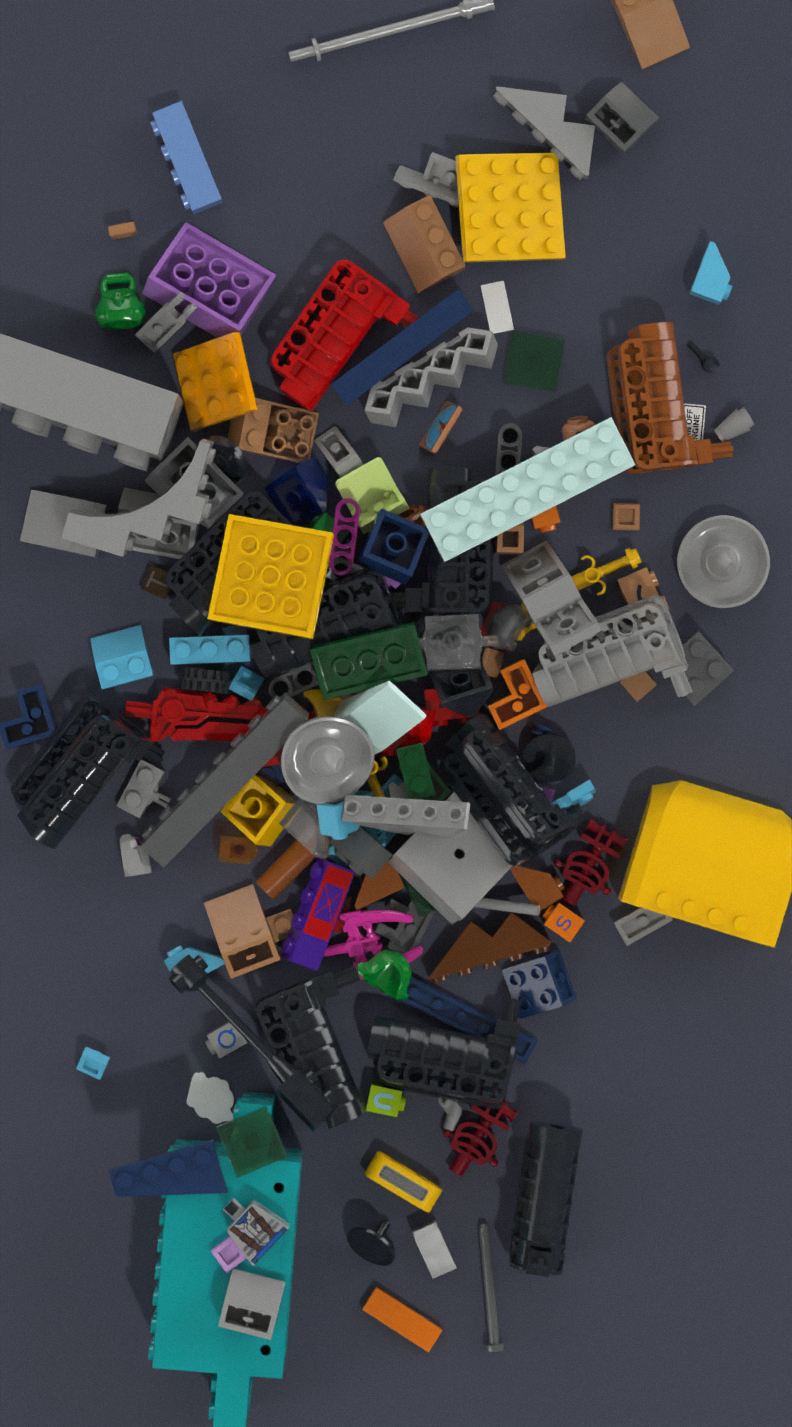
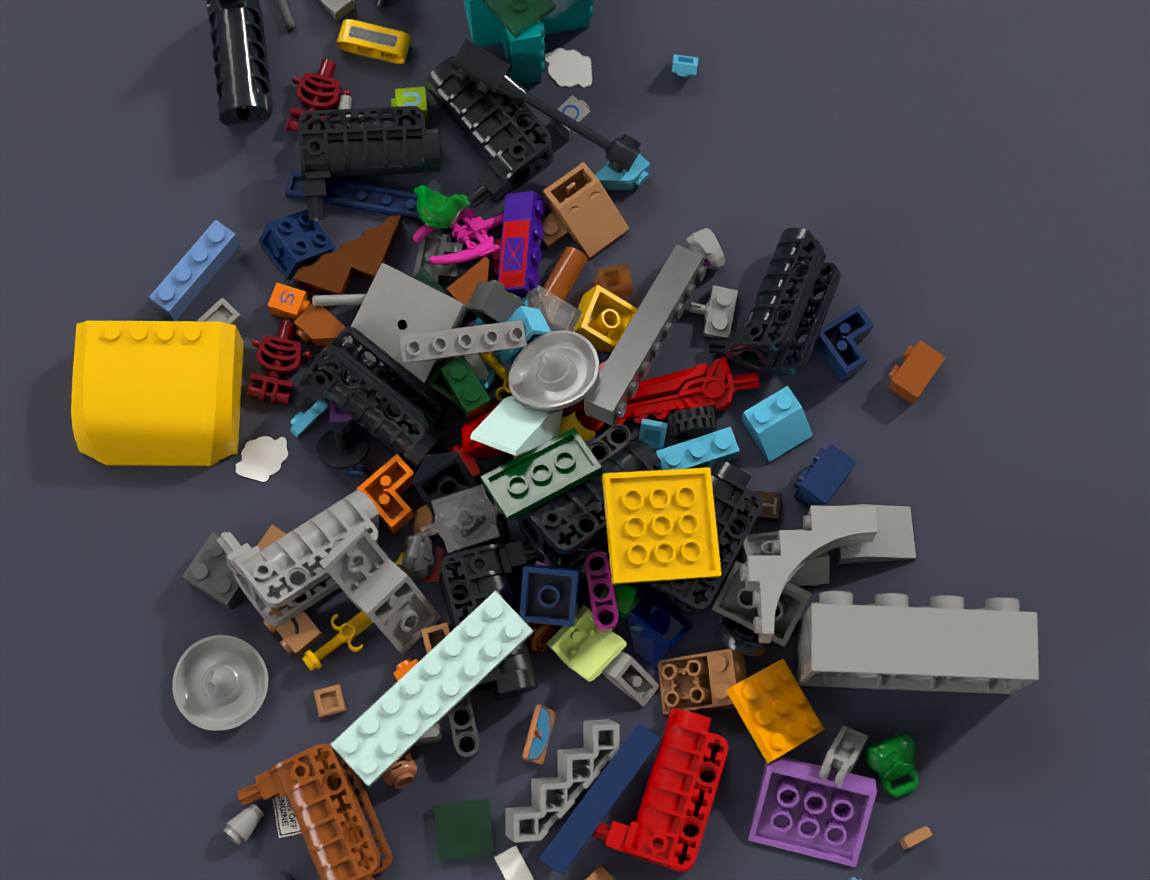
camera: 160 degrees right, 15 degrees down
(96, 587) = (827, 474): none -> dark blue brick
(629, 773) = (262, 458): none -> white sticker
(647, 981) = (194, 270): none -> medium blue brick

